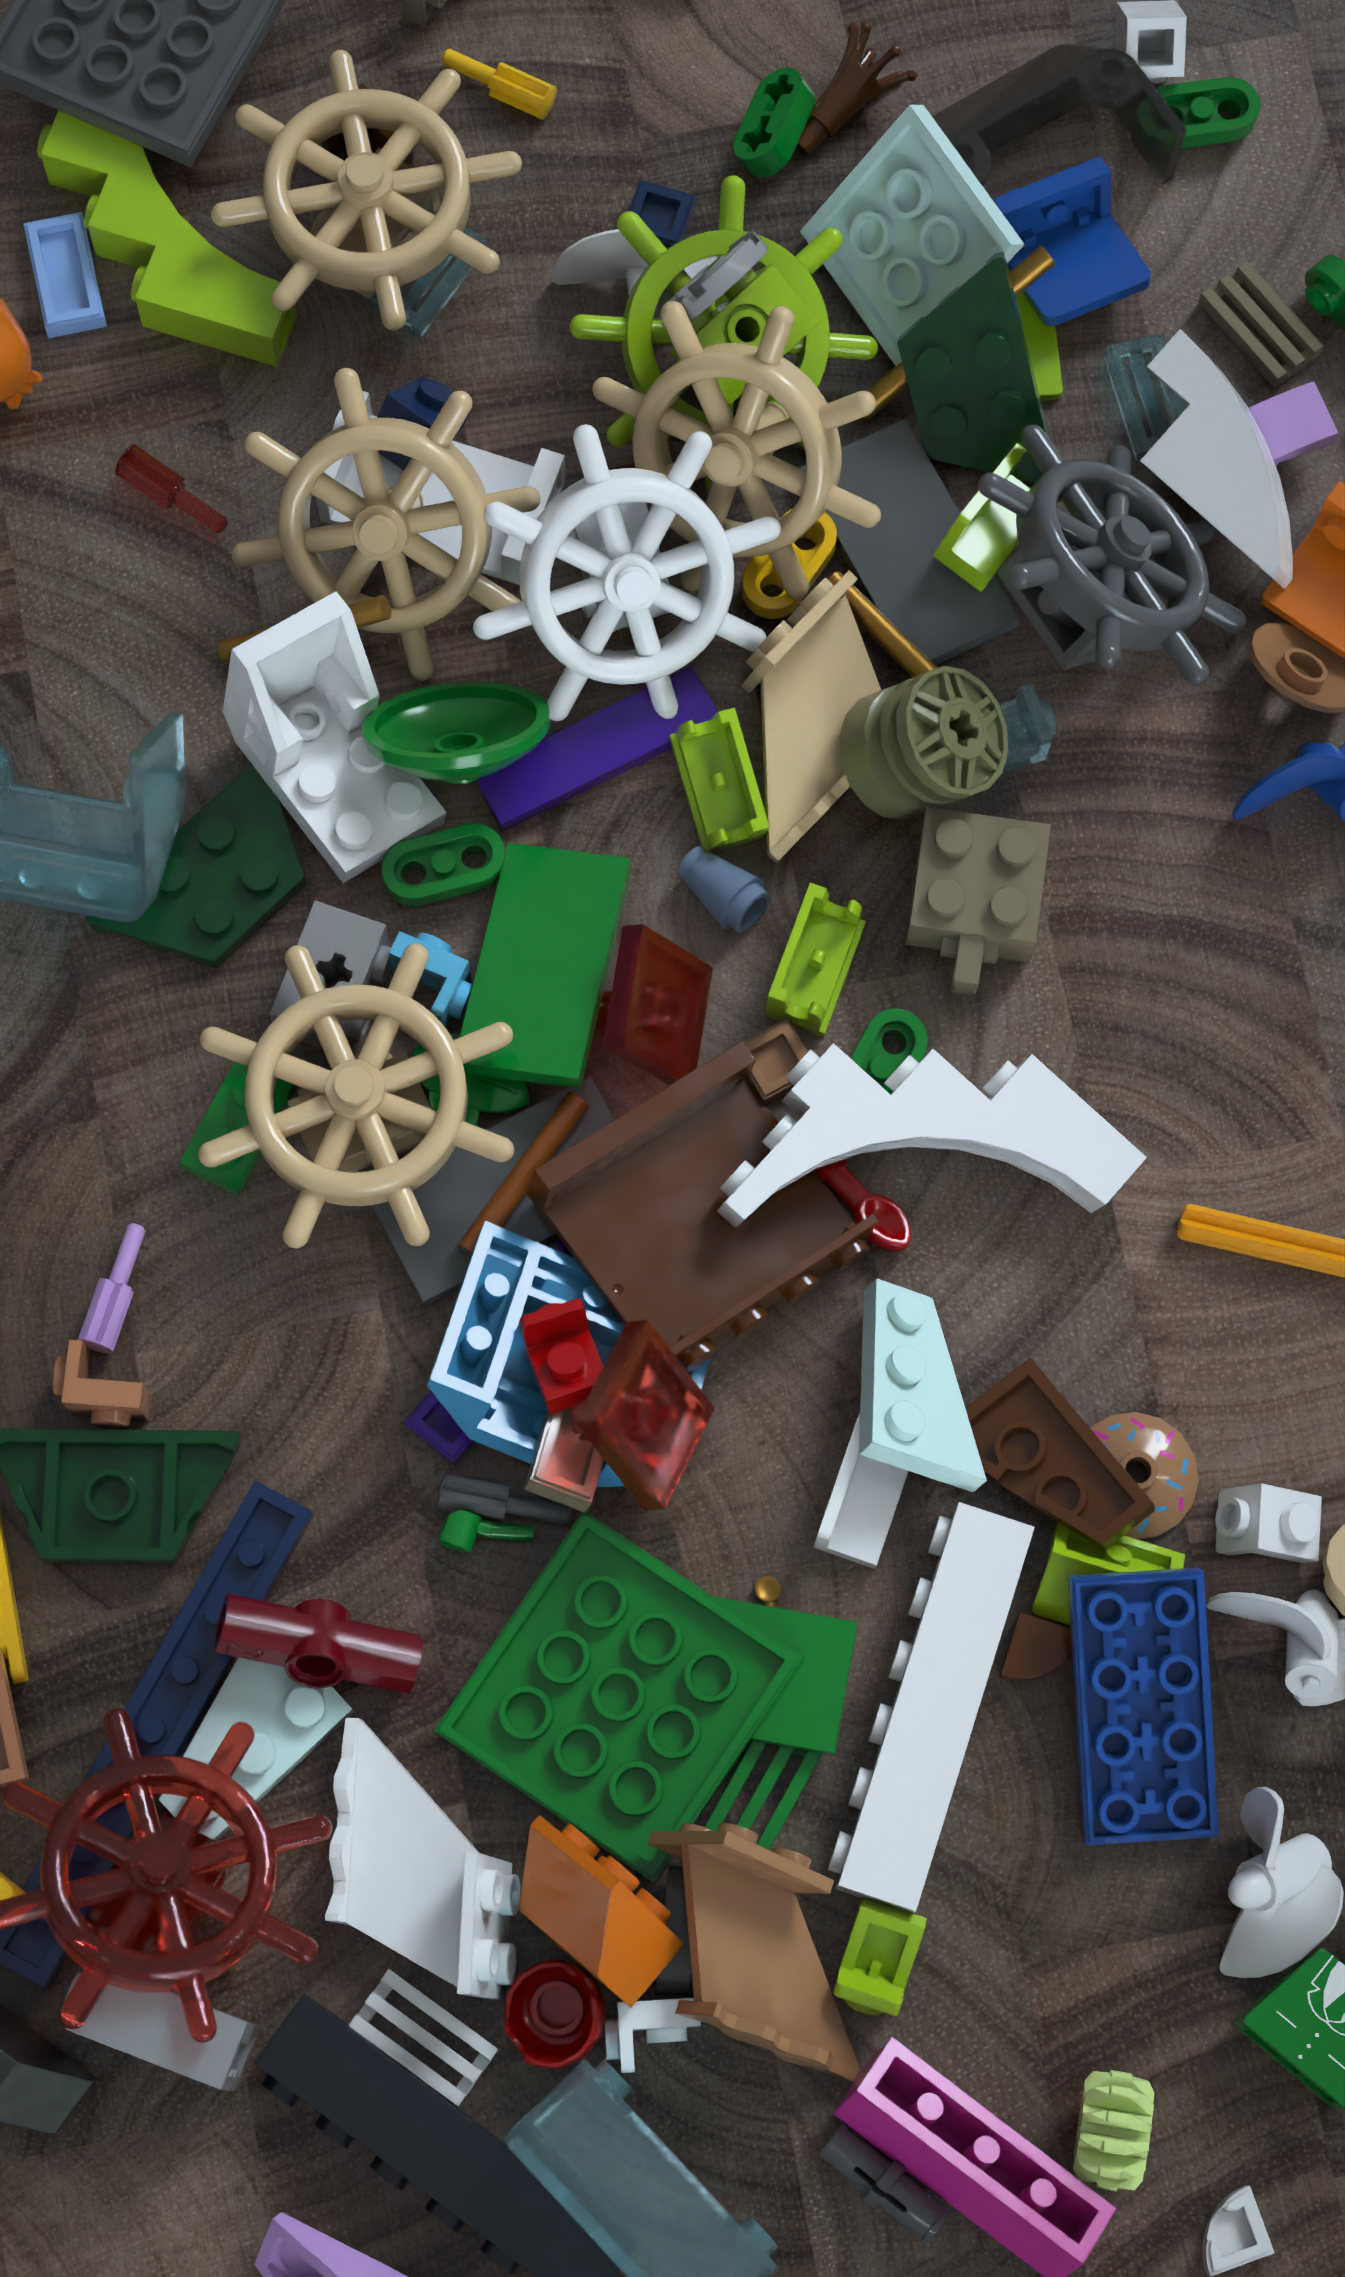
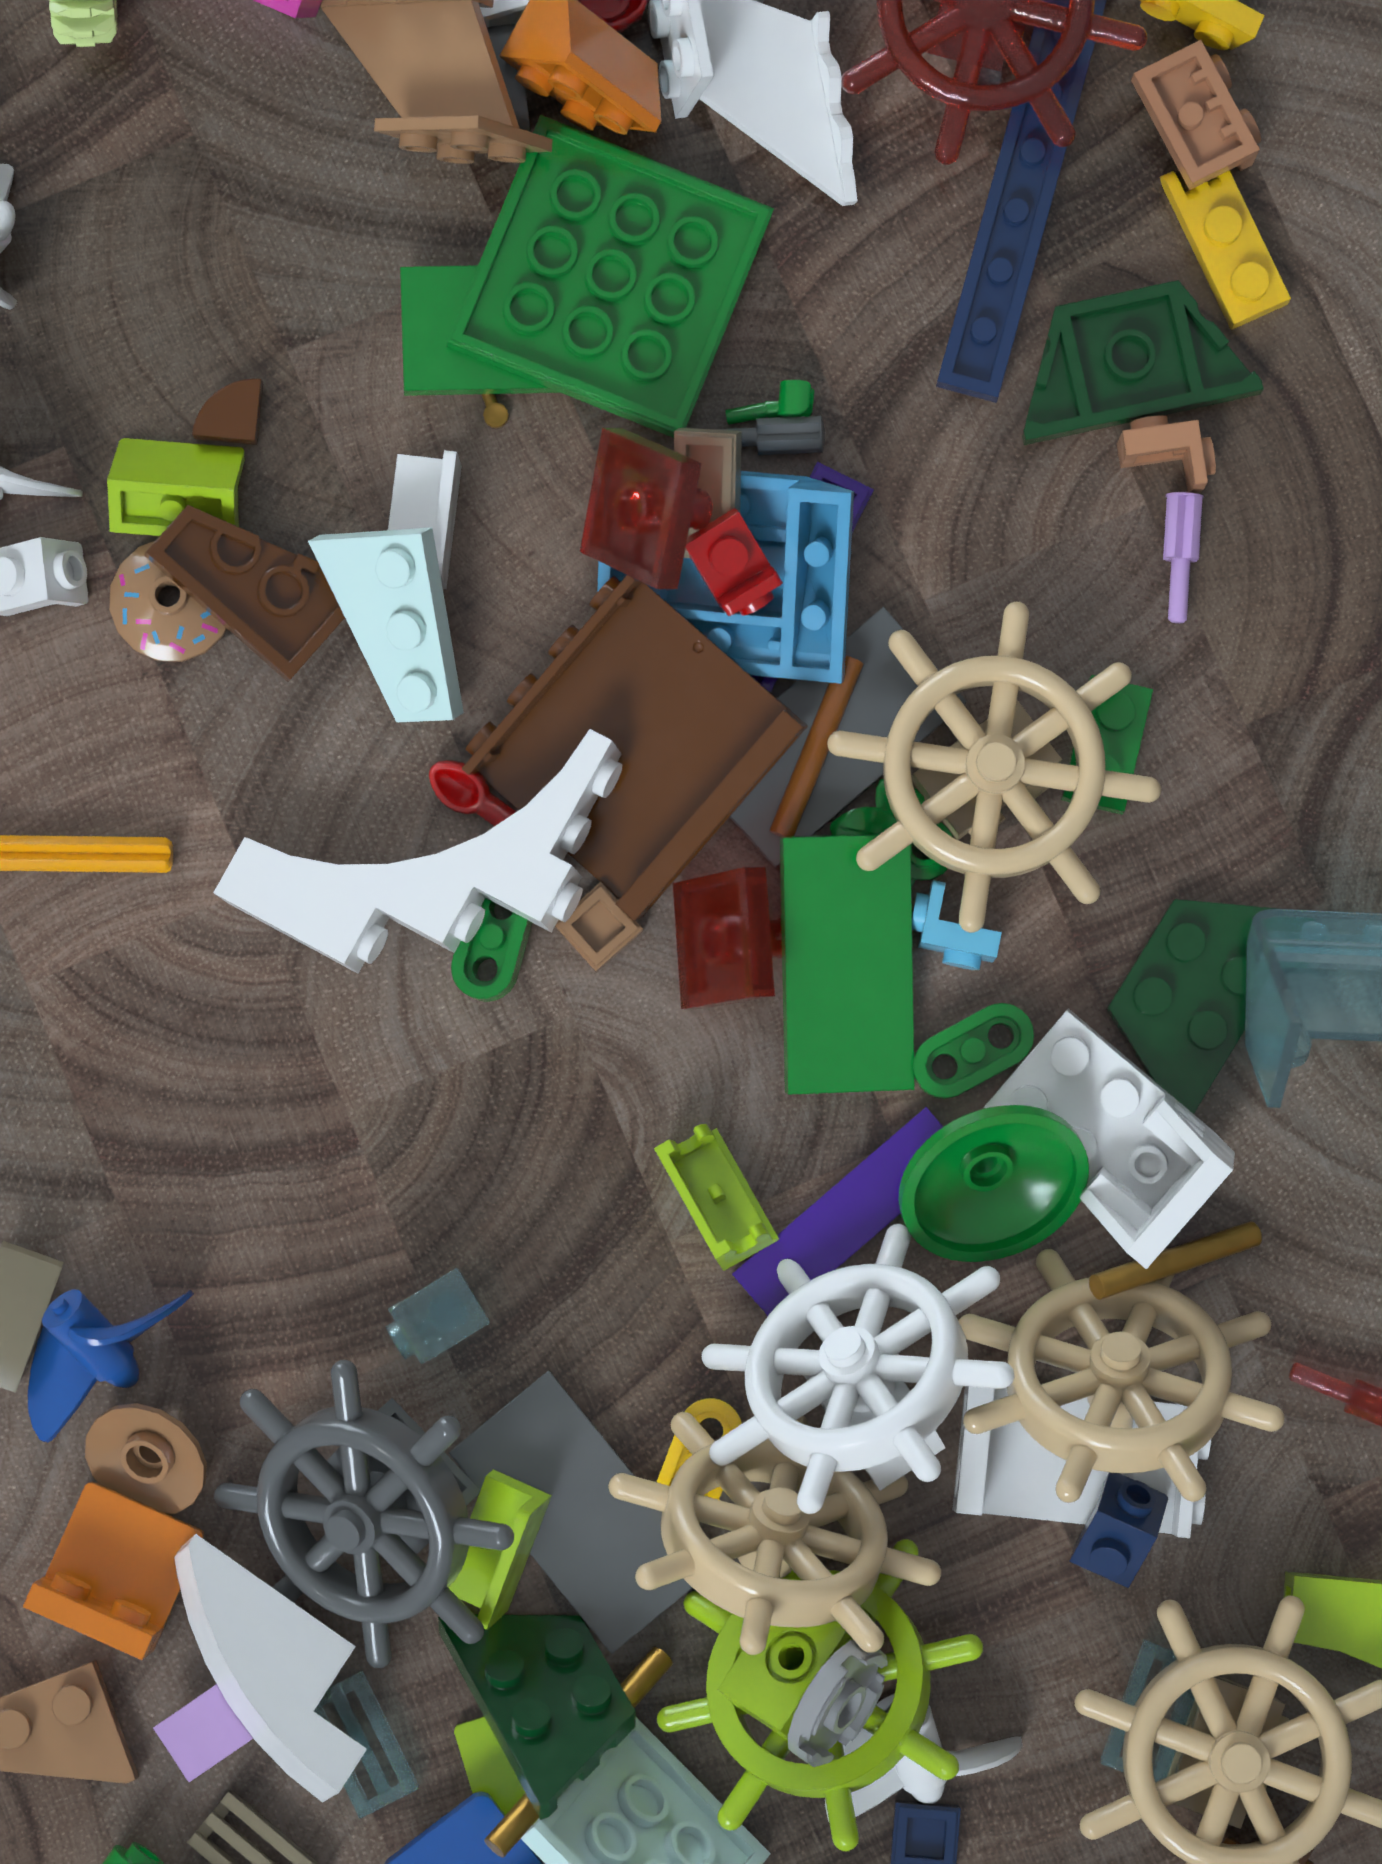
camera: 175 degrees right, 10 degrees up
(286, 1725) = (928, 205): light aqua wing -> none
(318, 1643) = (899, 256): dark red piece -> none
(337, 945) = (1056, 943): light grey brick -> none
(724, 889) = (687, 1089): sand blue cone -> none
(764, 1789) = (476, 175): green tile -> none
(807, 687) = (631, 1291): tan piece -> none
(815, 962) = (579, 1033): lime hinge -> none
(878, 1958) = (323, 97): lime bracket -> none
(885, 632) = (572, 1392): pearl gold bar -> none
(923, 743) = (516, 1268): olive wheel -> none
(933, 1708) = (317, 333): white brick -> none
(977, 890) = (433, 1136): dark tan hinge -> none
(1143, 1706) = (123, 374): blue tile -> none

